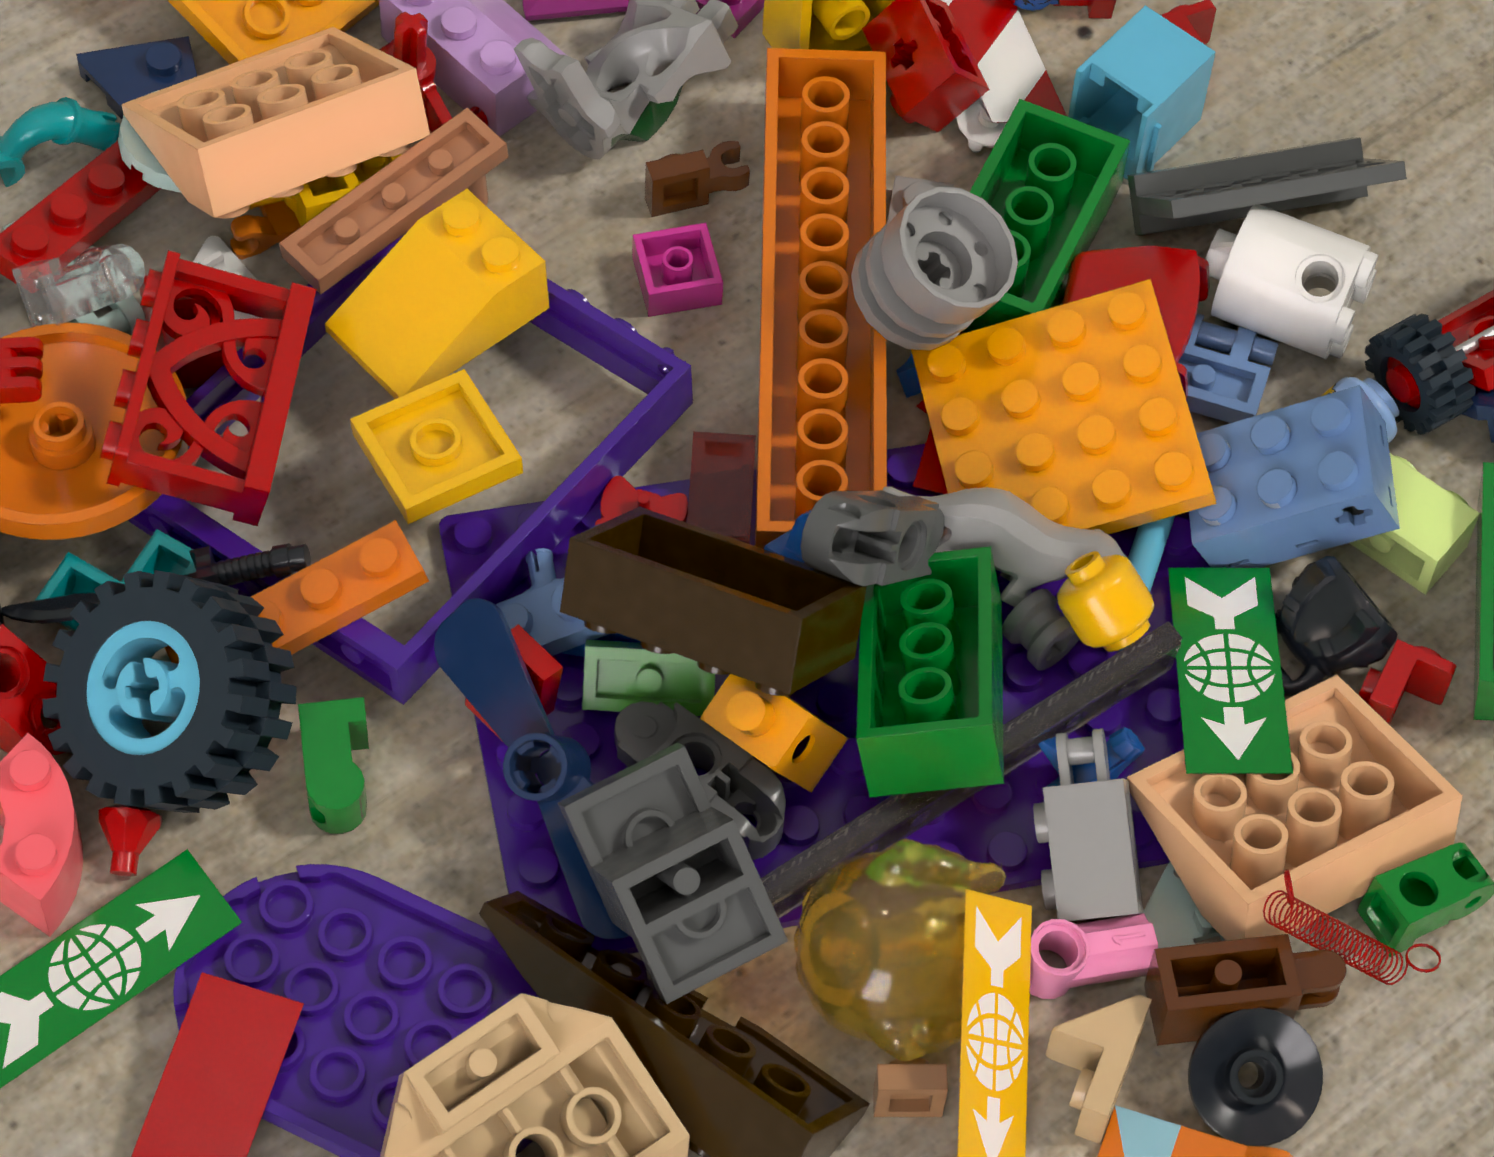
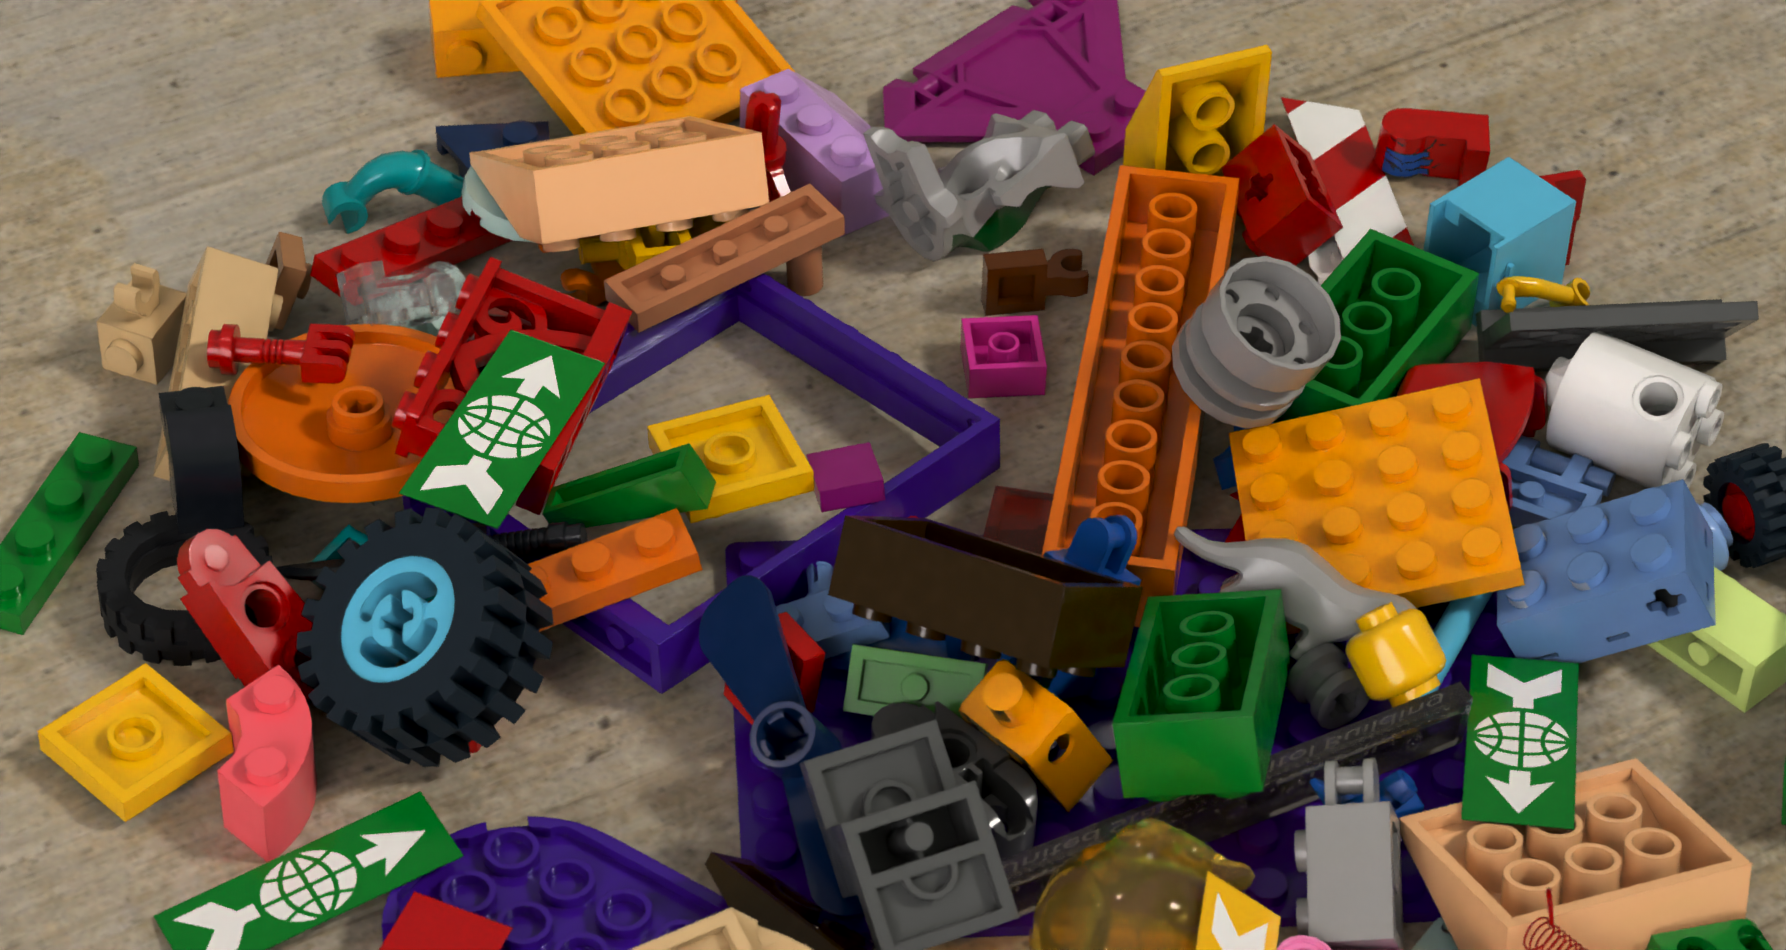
camera: 10 degrees right, 15 degrees down
(128, 833) = (364, 774): red rock -> none
(211, 452) = (502, 429): none -> green sticker
(332, 779) = (581, 718): green leg -> none
(347, 503) = (634, 490): none -> green piece
(441, 297) = (759, 332): yellow slope -> none
(552, 454) = (846, 477): none -> magenta tile
(872, 536) = (1155, 548): dark grey piece -> none
(1208, 146) = (1572, 294): none -> yellow piece
(1330, 625) = (1636, 712): black piece -> none
(1411, 671) = (1715, 770): red bracket -> none

